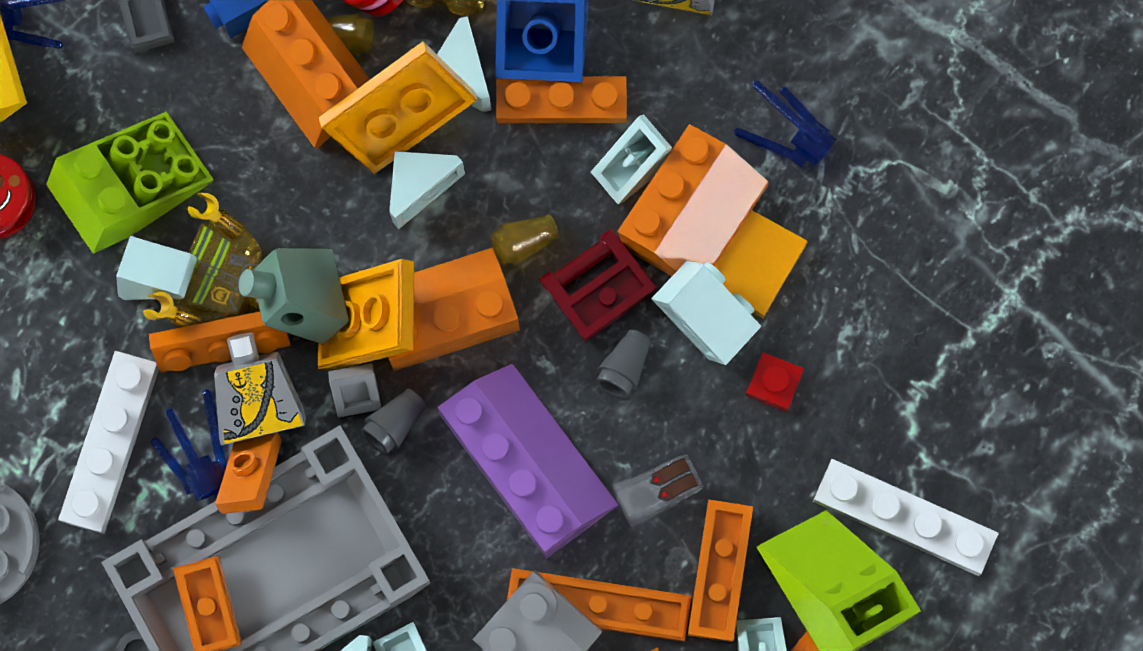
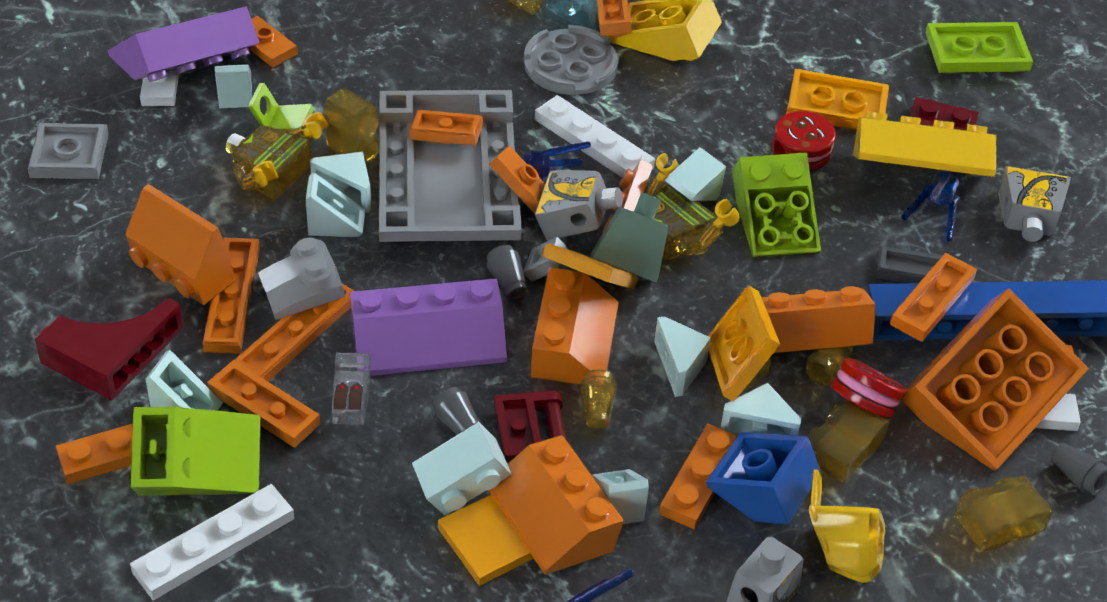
camera: 110 degrees right, 30 degrees down
(774, 382) = (380, 507): red plate -> none

